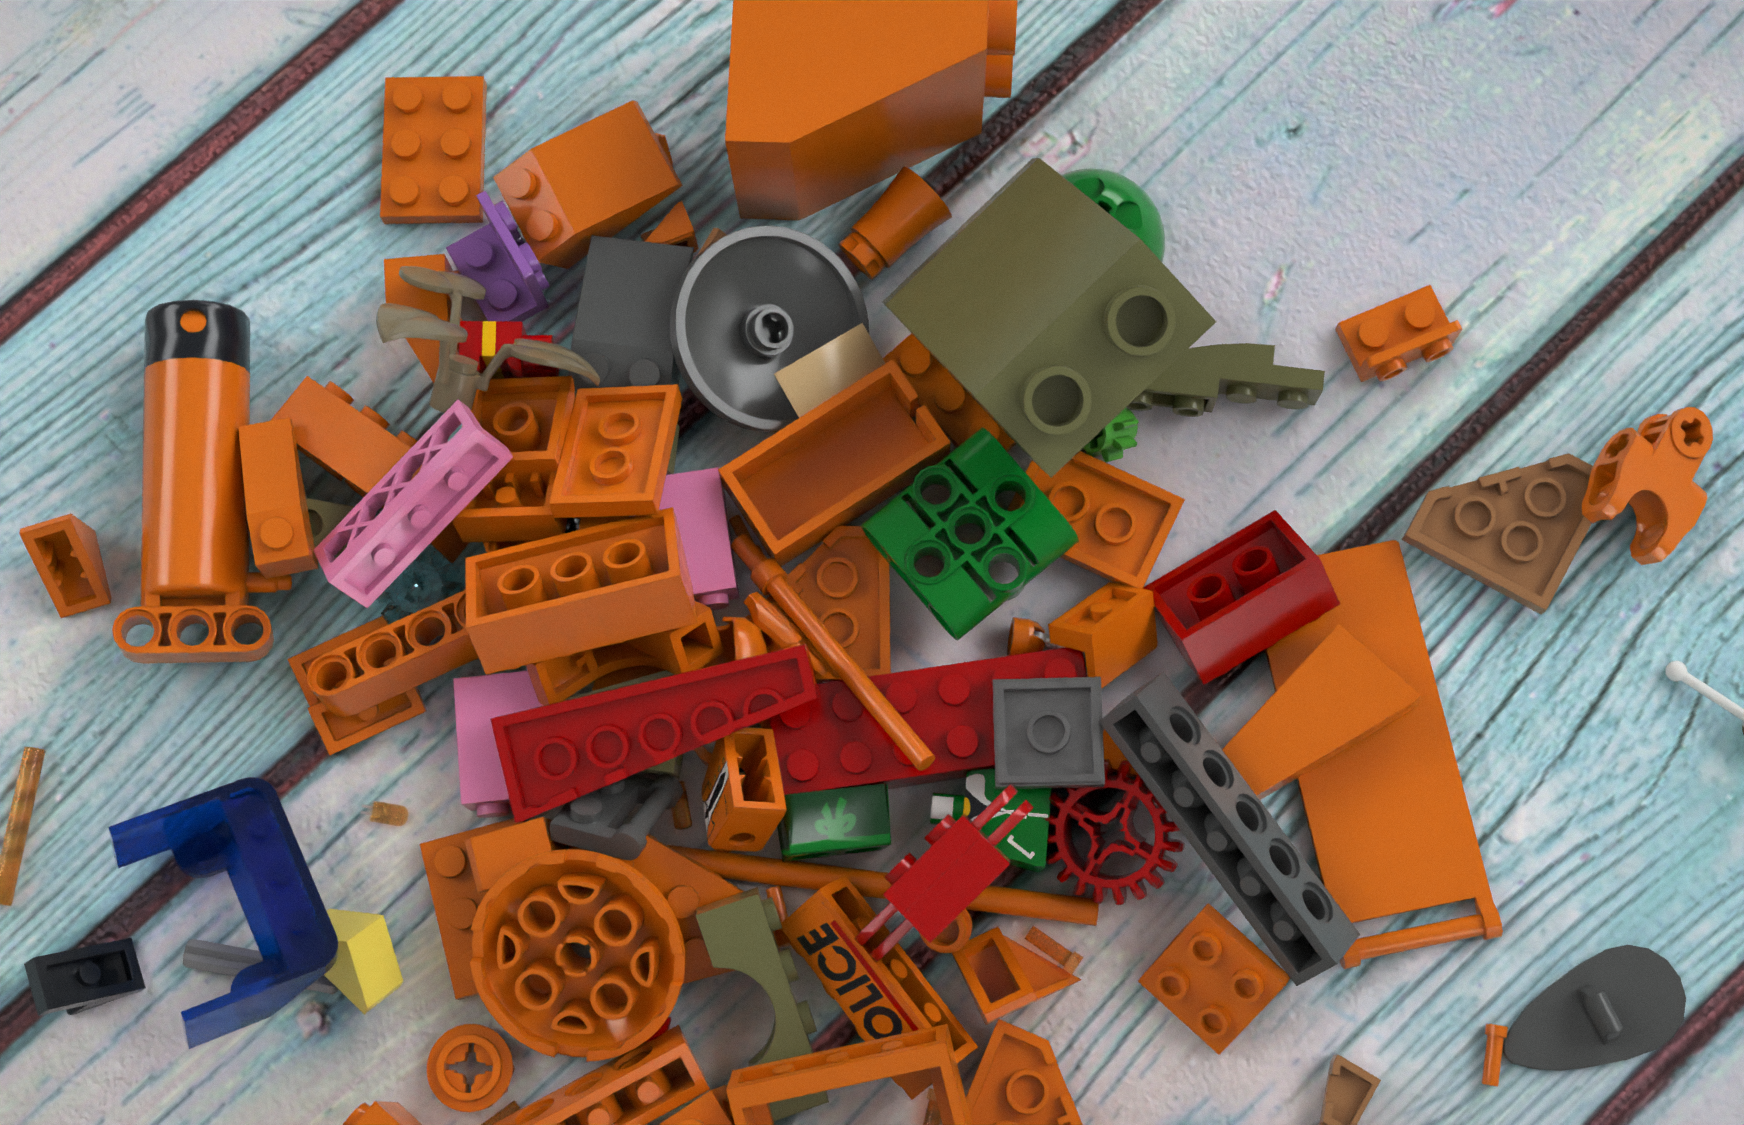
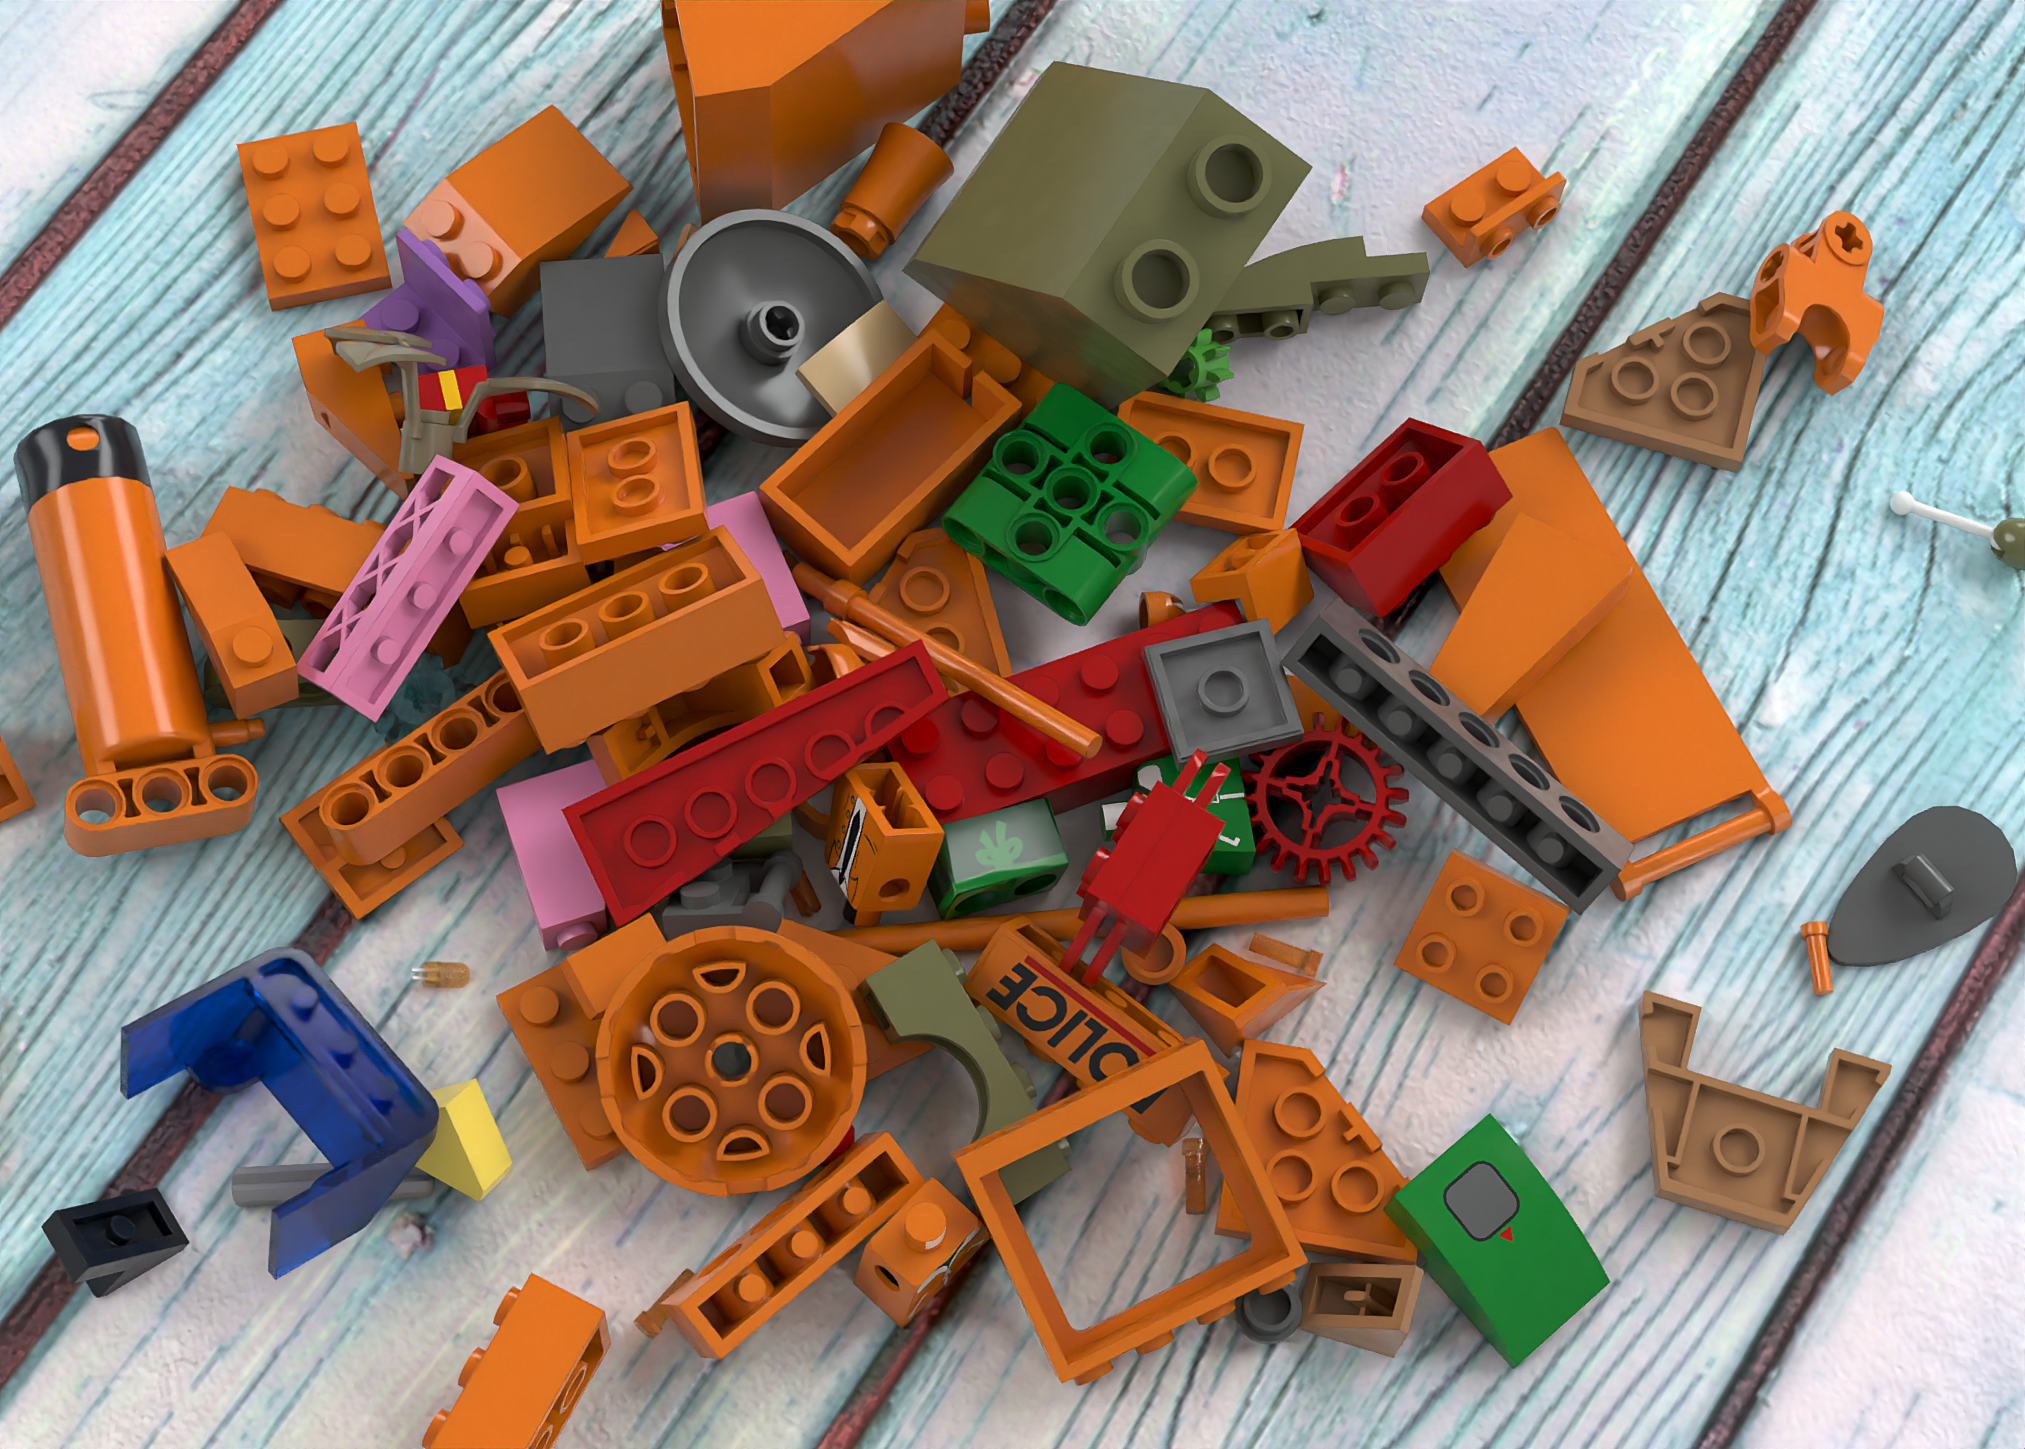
camera: 25 degrees left, 10 degrees down
(455, 1047) = (595, 1226): orange gear -> none

